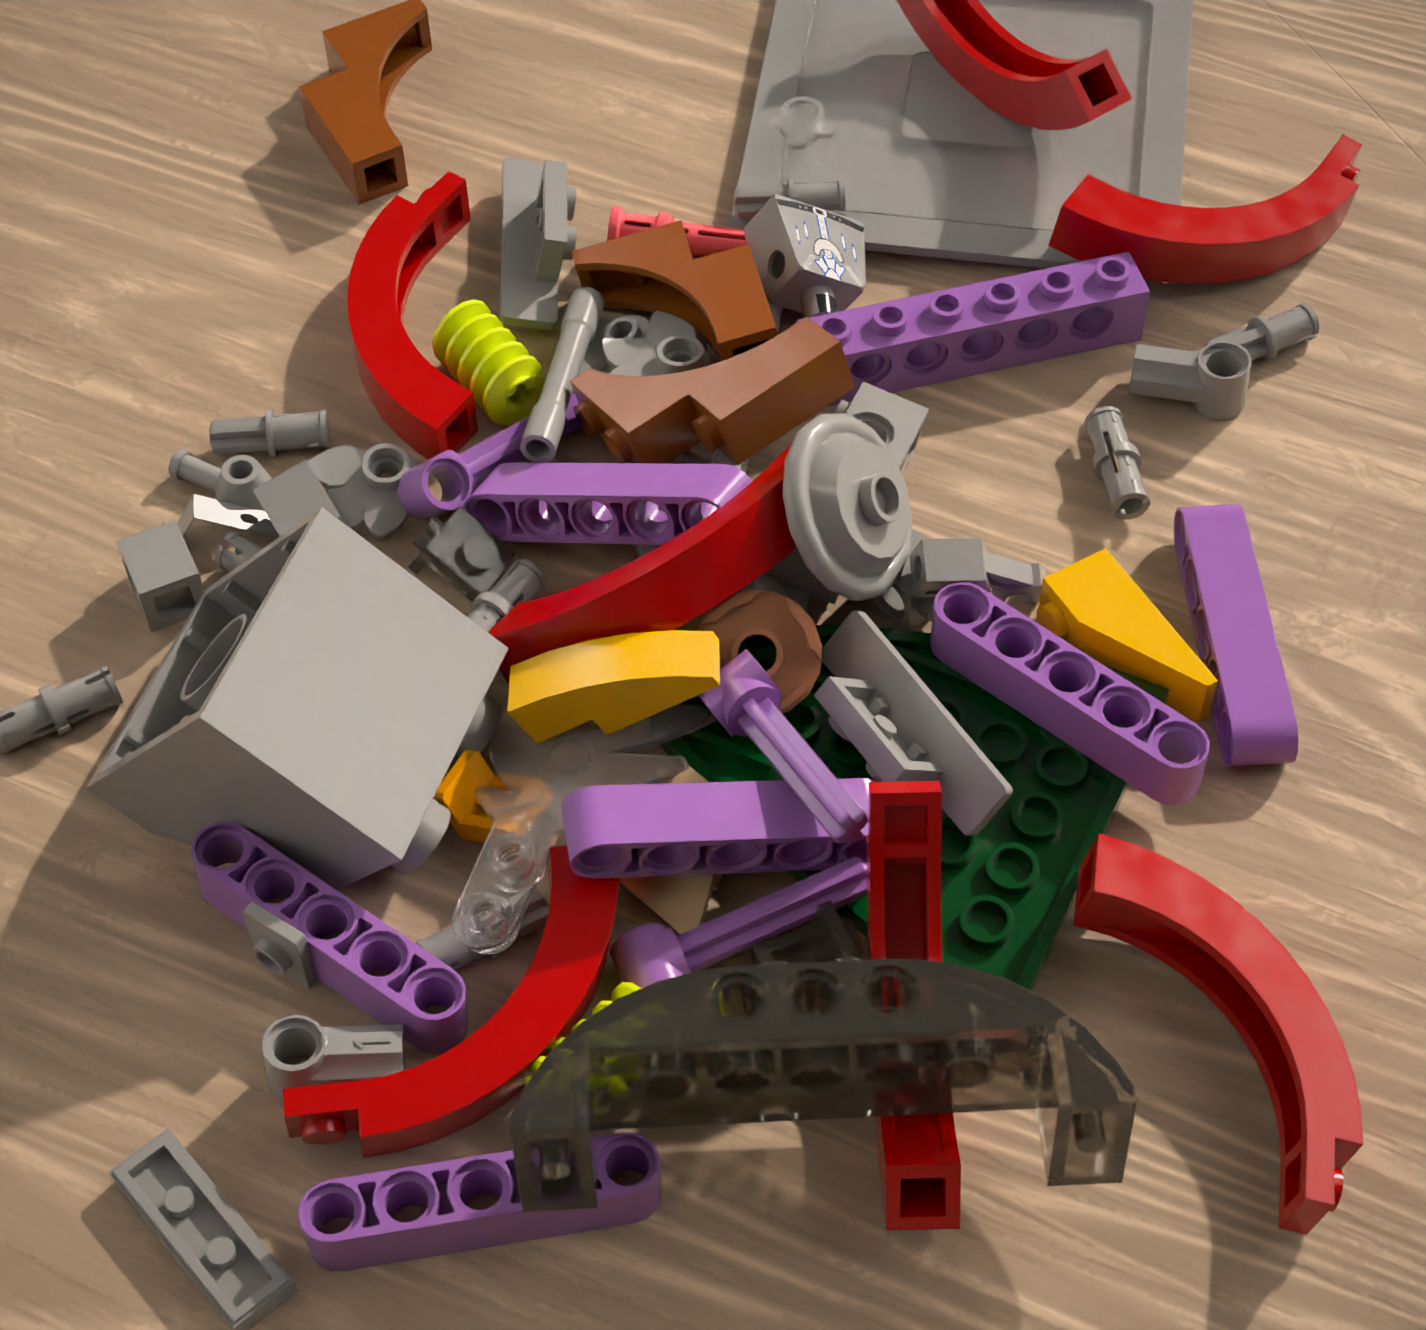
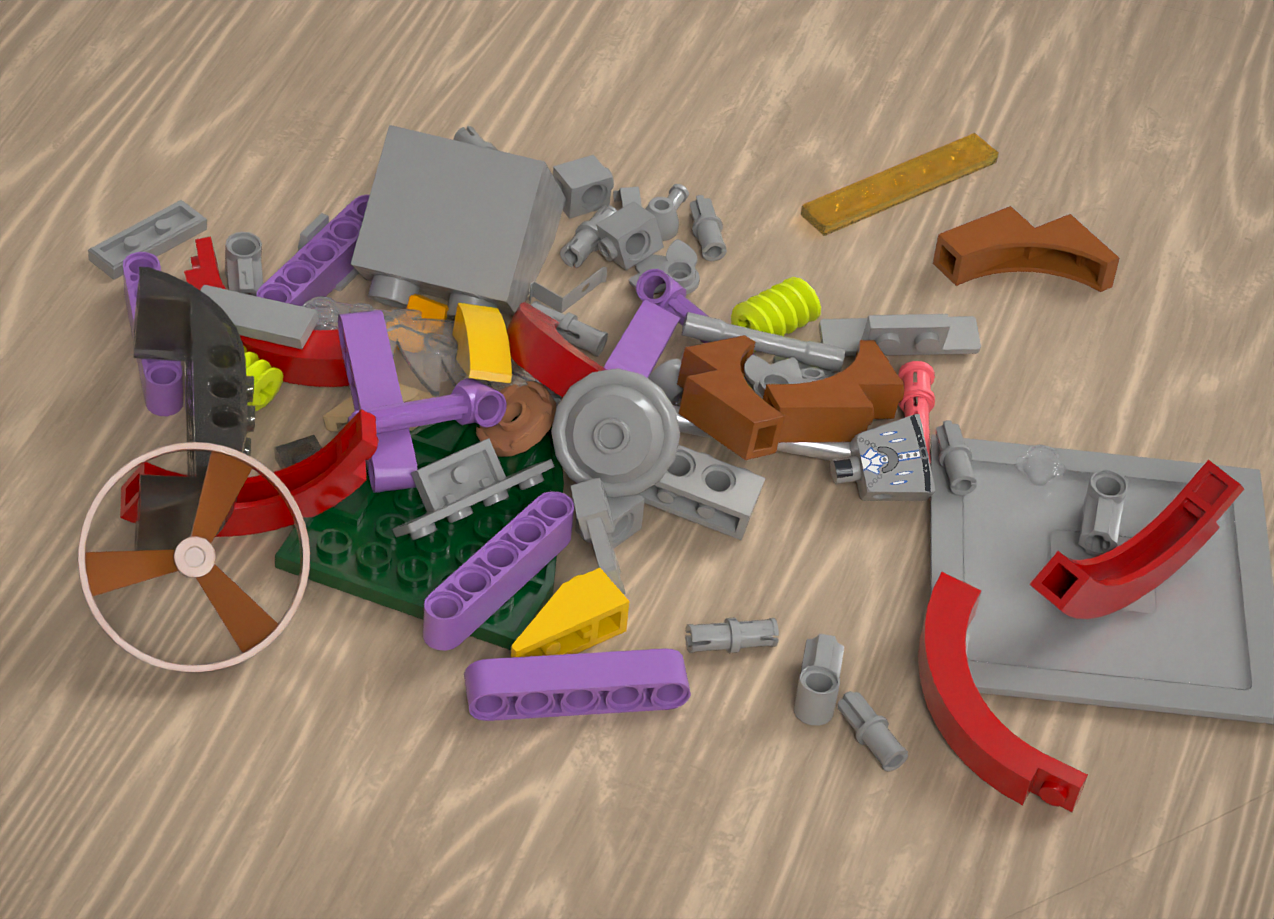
camera: 80 degrees right, 10 degrees down
(192, 219) = (898, 184): none -> clear yellow tile
(405, 389) = (823, 265): red arch -> none
(461, 553) = (612, 309): clear smoke bracket -> none
(510, 1015) = (265, 317): none -> light grey tile
(655, 954) = (307, 404): medium lavender axle -> none
(882, 70) = (1102, 512): none -> light grey piece
(991, 324) = (845, 557): medium lavender brick -> none
(1174, 1199) = (195, 556): none -> dark orange piece
(1259, 990) = (263, 670): arch -> none

